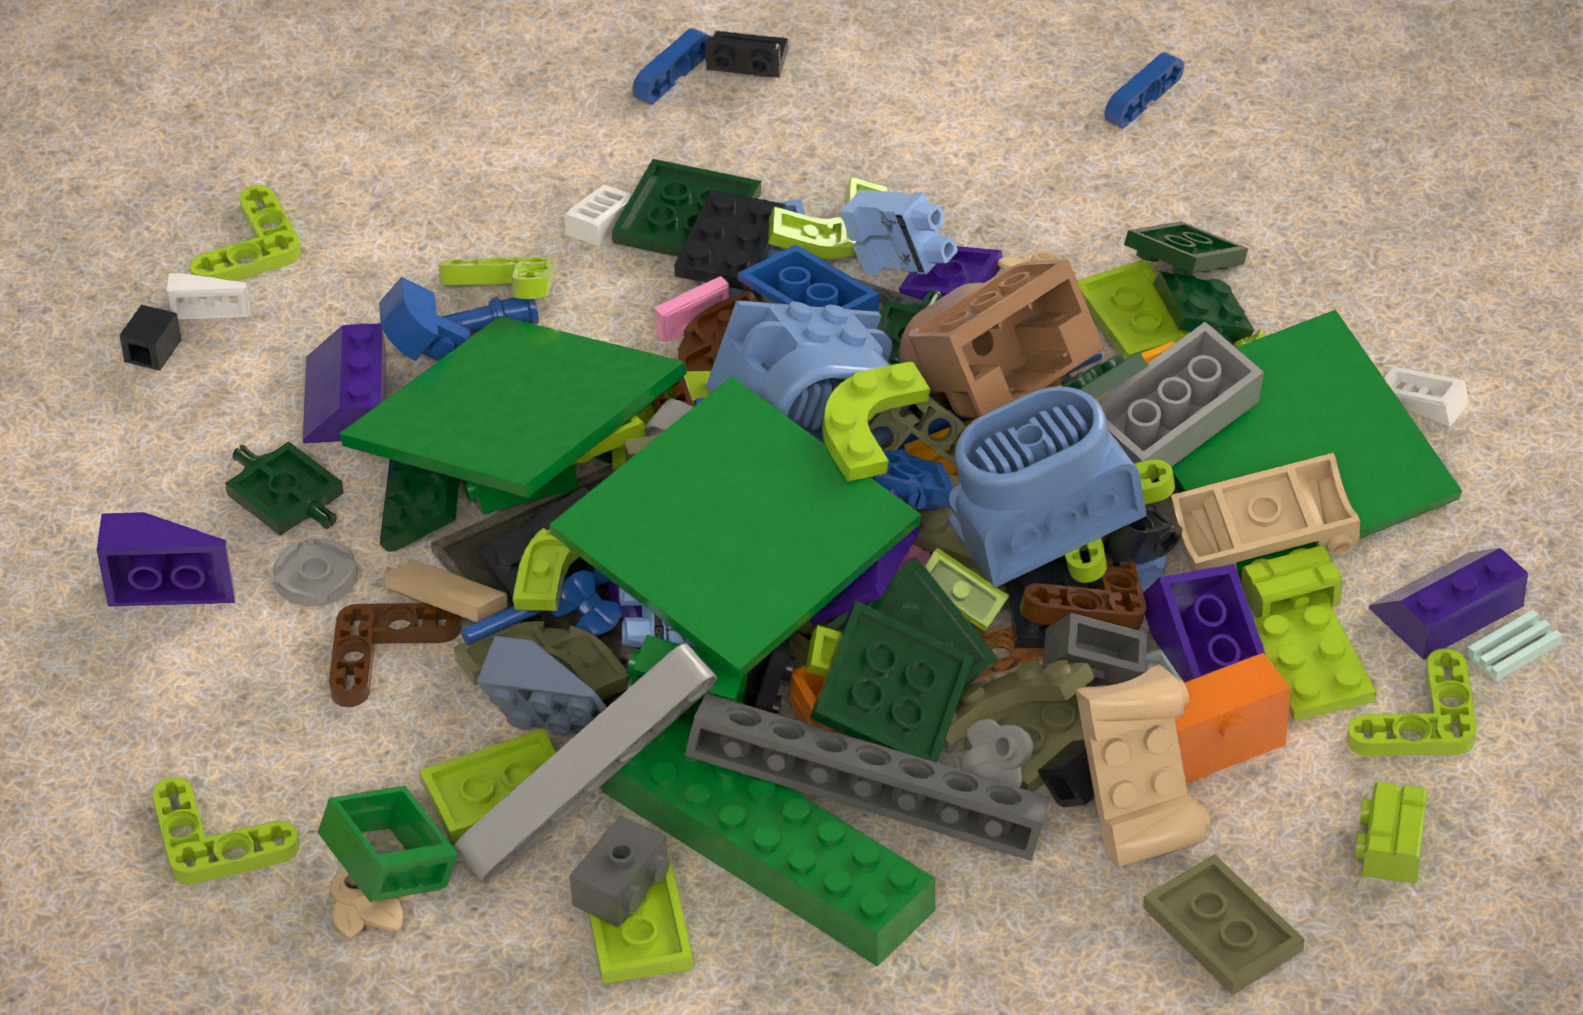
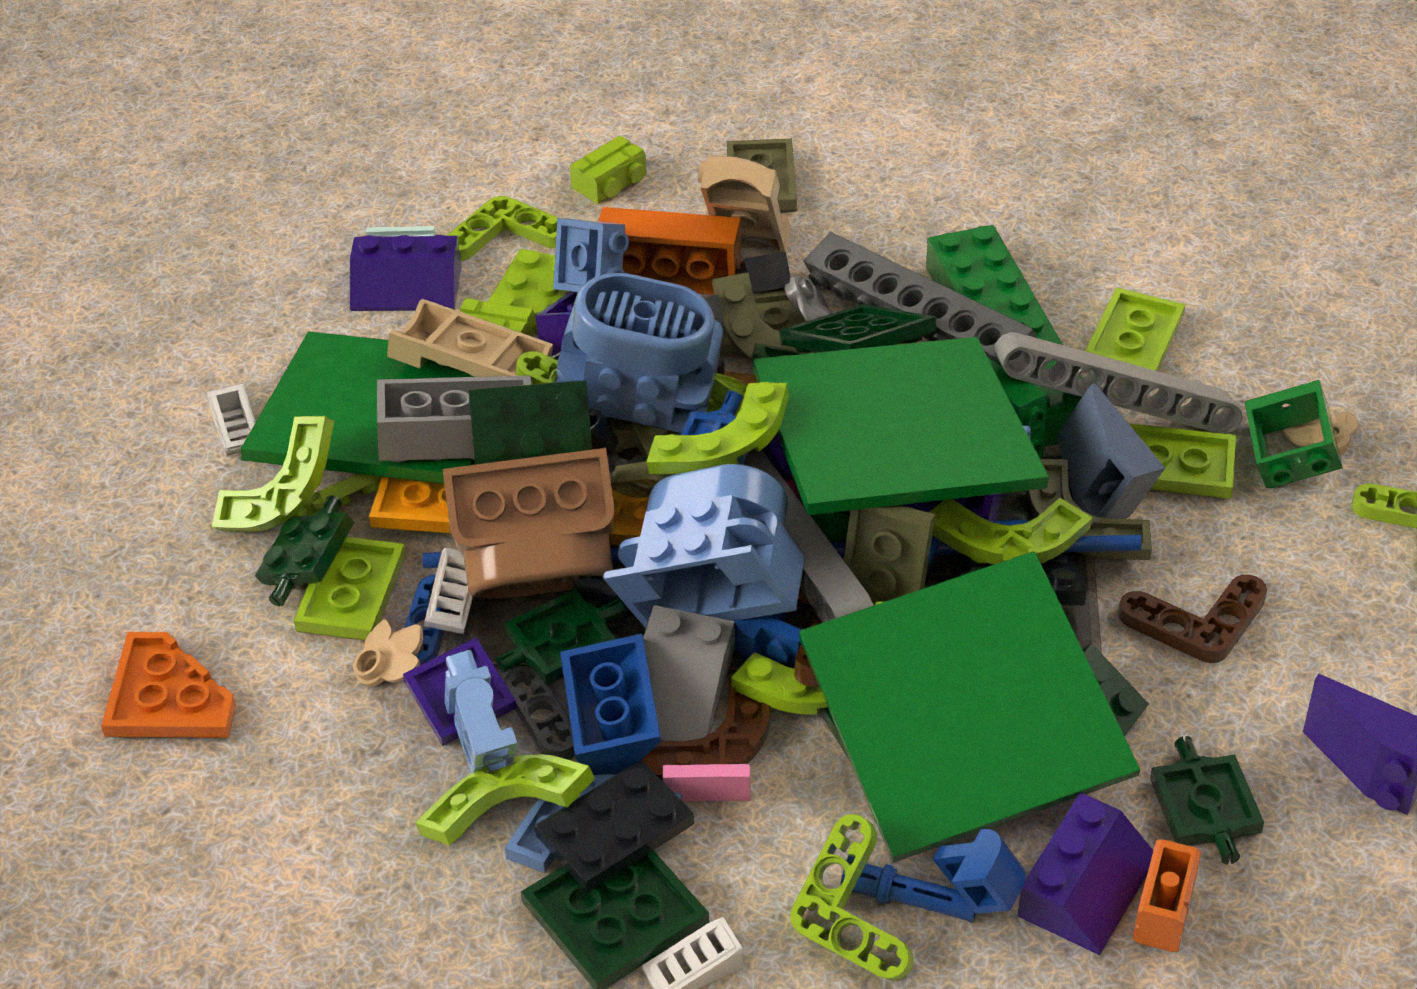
camera: 145 degrees left, 0 degrees up
(271, 387) = (1167, 895): none -> orange brick
(317, 583) = (1219, 723): light grey tile -> none
(446, 590) = (1122, 617): tan tile -> none
(619, 871) = (1137, 332): dark grey brick -> none
(1144, 87) = (42, 812): blue beam -> none
(1183, 176) = (165, 693): none -> orange plate
(1185, 248) = (260, 592): dark green plate -> none
(1238, 635) = (587, 251): none -> medium blue plate
(1275, 316) = (290, 488): none -> lime plate

